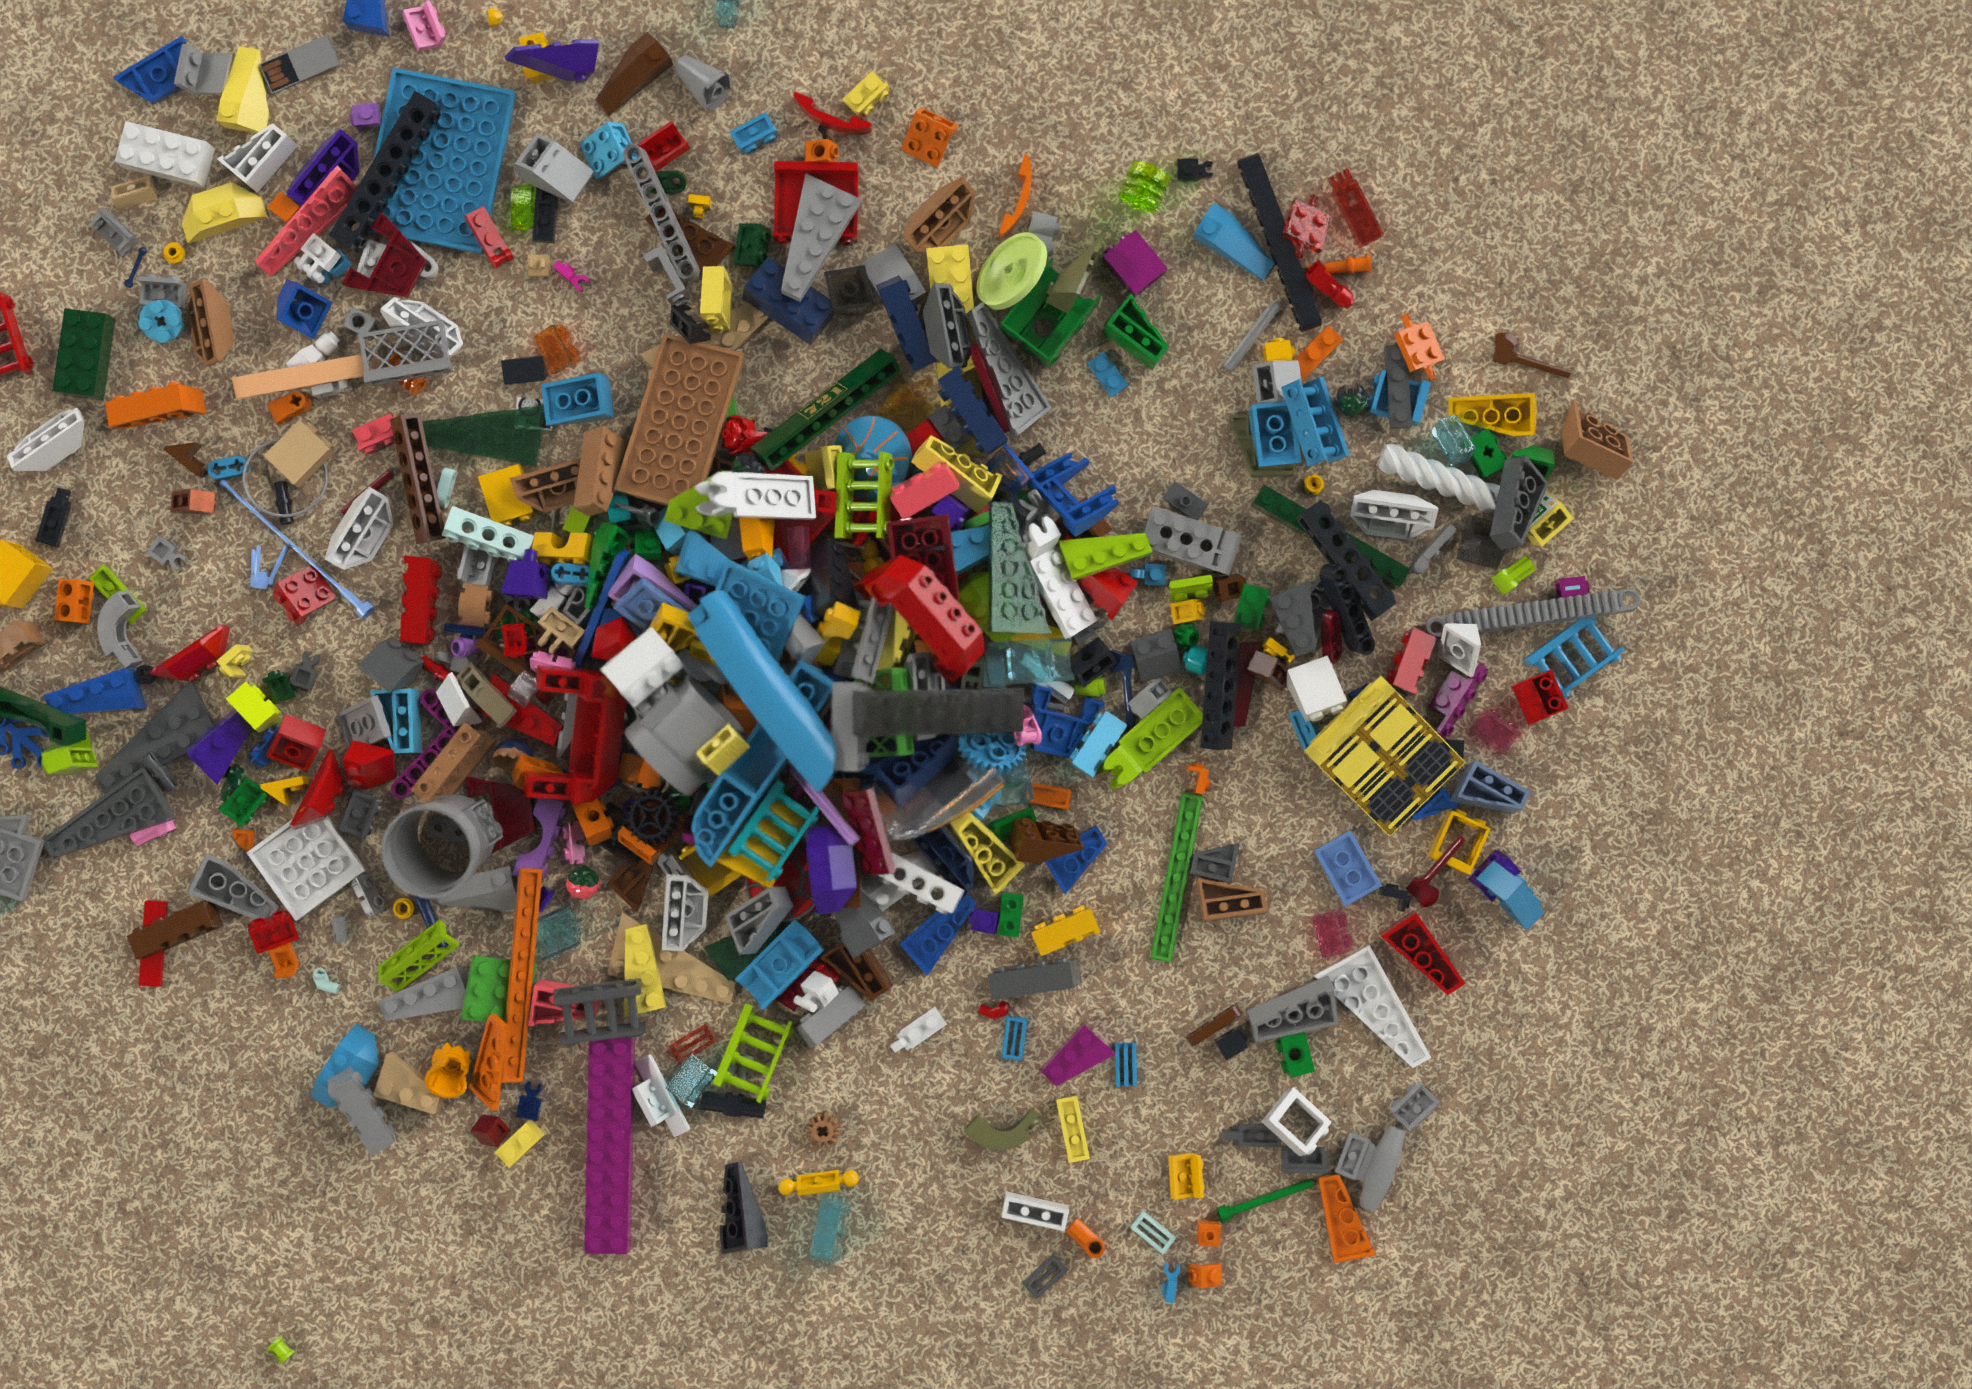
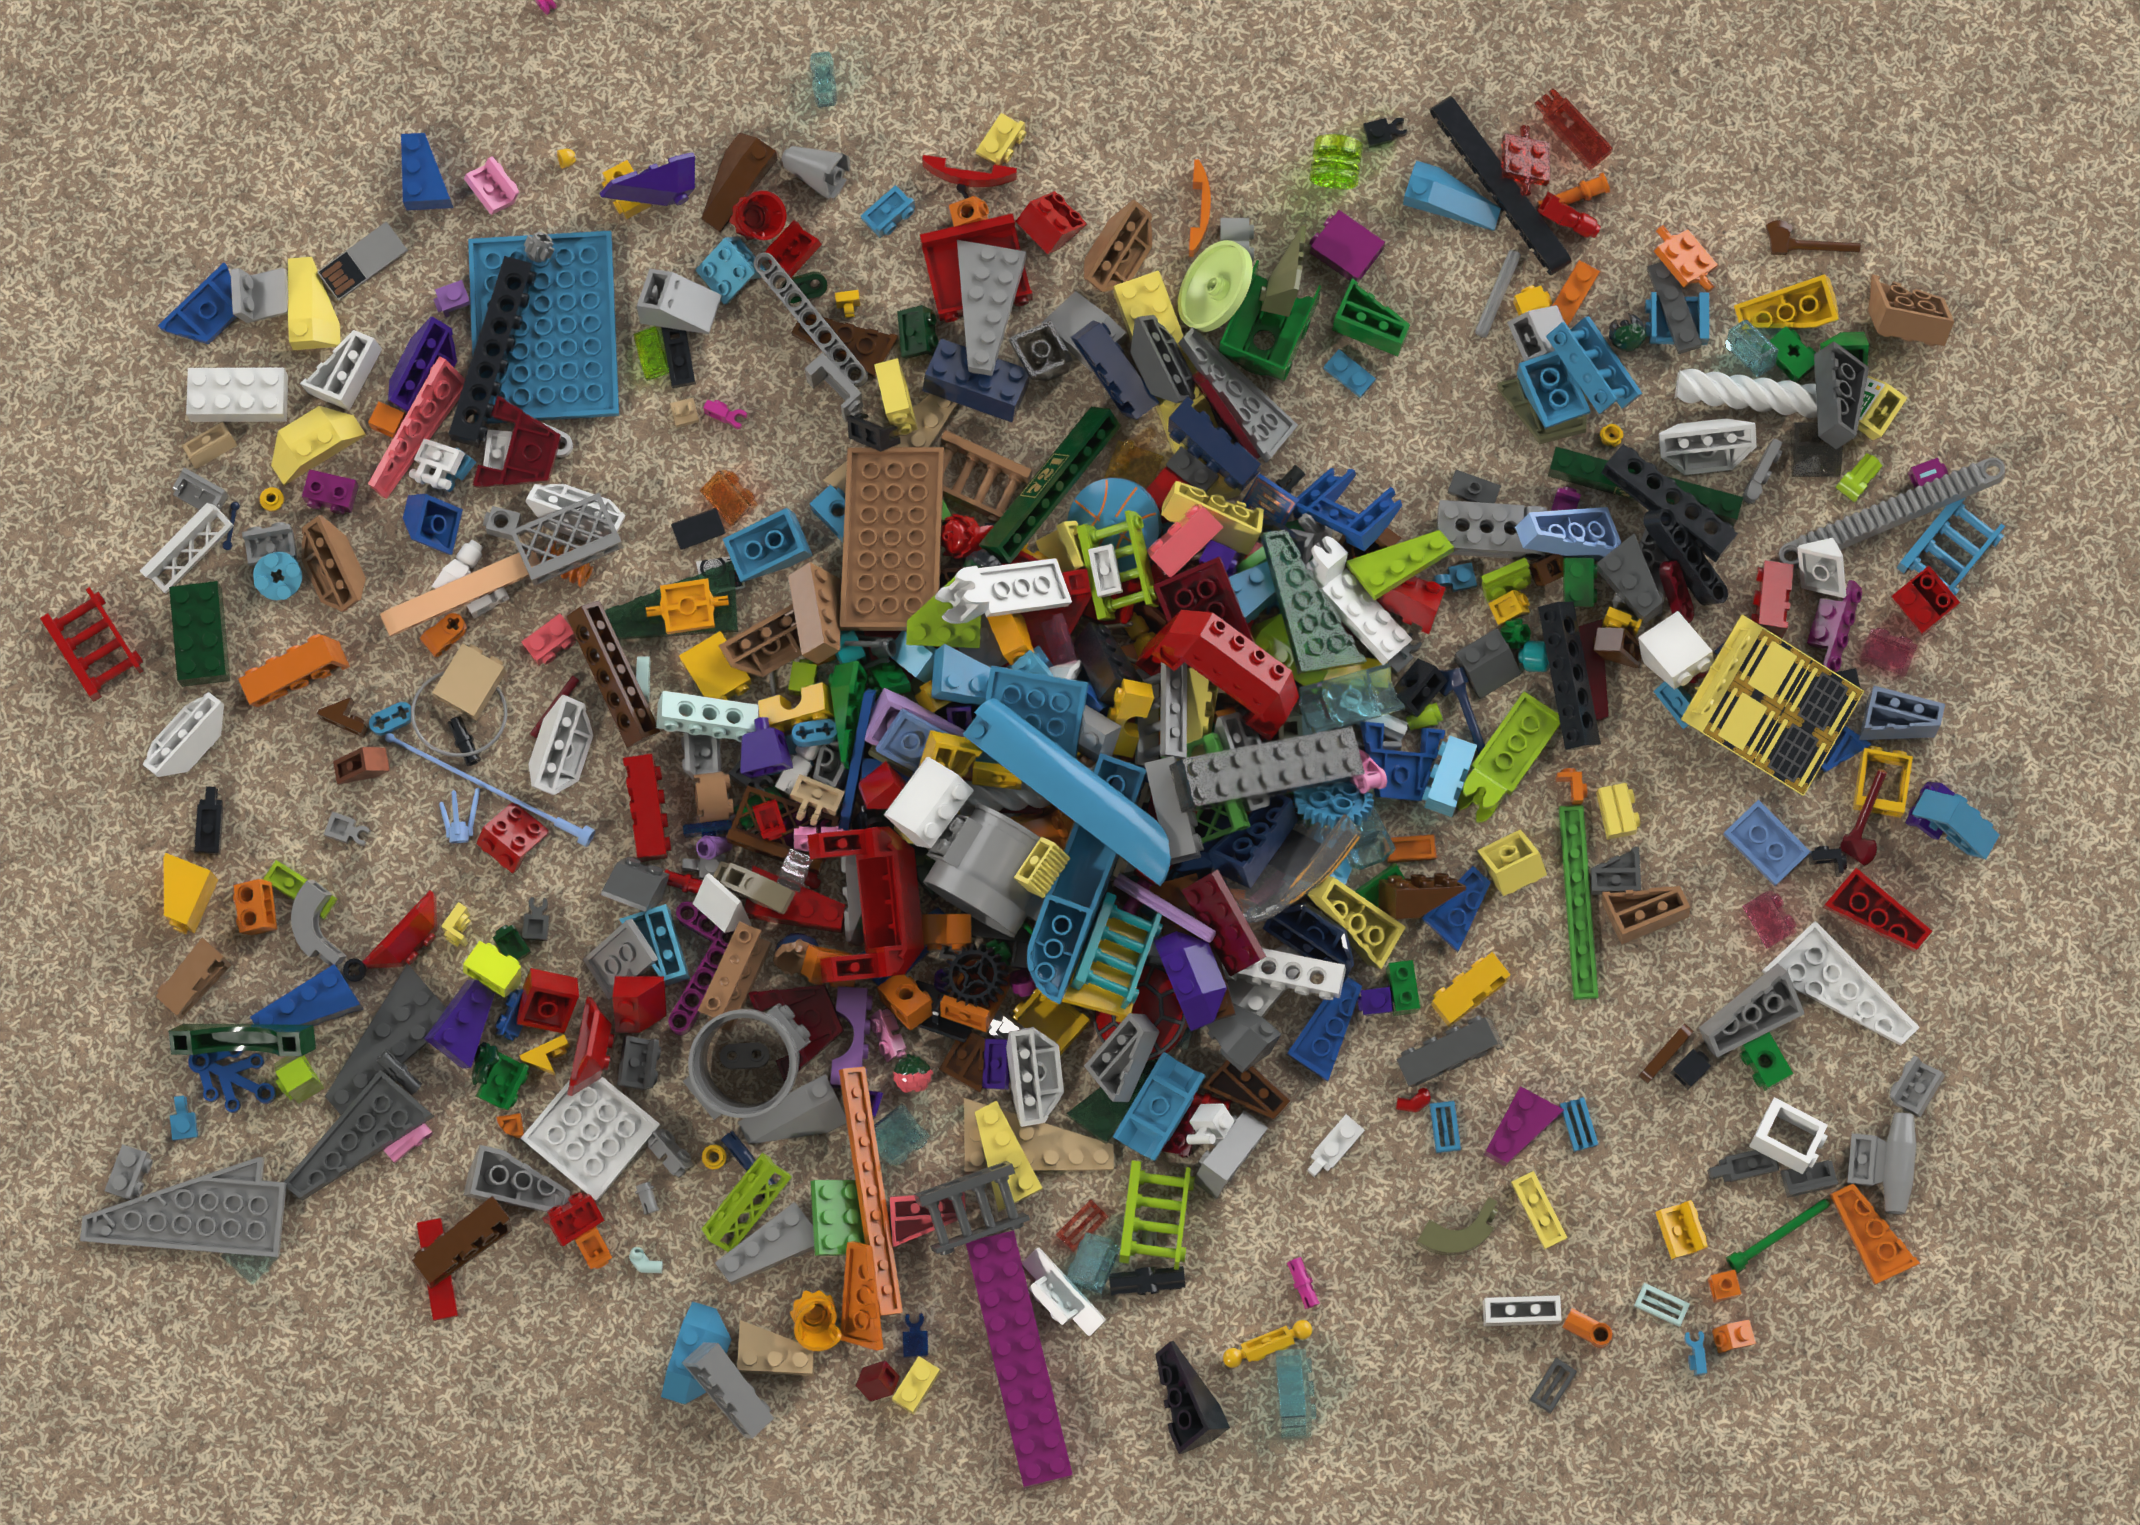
camera: 10 degrees left, 10 degrees down
(86, 270) = (184, 538): none -> white fence
(222, 258) = (330, 492): none -> magenta brick
(447, 90) = (539, 247): none -> light grey gear
(488, 237) = (623, 394): plate -> none
(495, 435) = (687, 606): none -> light orange plate
(635, 377) = (824, 506): none -> dark azure brick
(641, 110) = (759, 216): none -> red hat
(654, 892) = (995, 1065): none -> dark purple plate
(787, 378) = (995, 465): none -> medium nougat fence
(814, 1130) = (1260, 1291): medium nougat gear -> none
(850, 498) = (1105, 570): none -> white plate
(861, 1138) = (1303, 1283): none -> dark pink pin
(889, 177) = (1050, 221): none -> red slope
(928, 136) = (1082, 168): orange bracket -> none
(1130, 830) = (1512, 862): none -> light yellow slope
(1149, 698) = (1493, 711): light grey slope -> none
(1230, 809) = (1617, 811): none -> light yellow brick
(1256, 563) = (1570, 532): none -> light blue wedge
(1257, 536) = (1566, 499): none -> magenta bracket

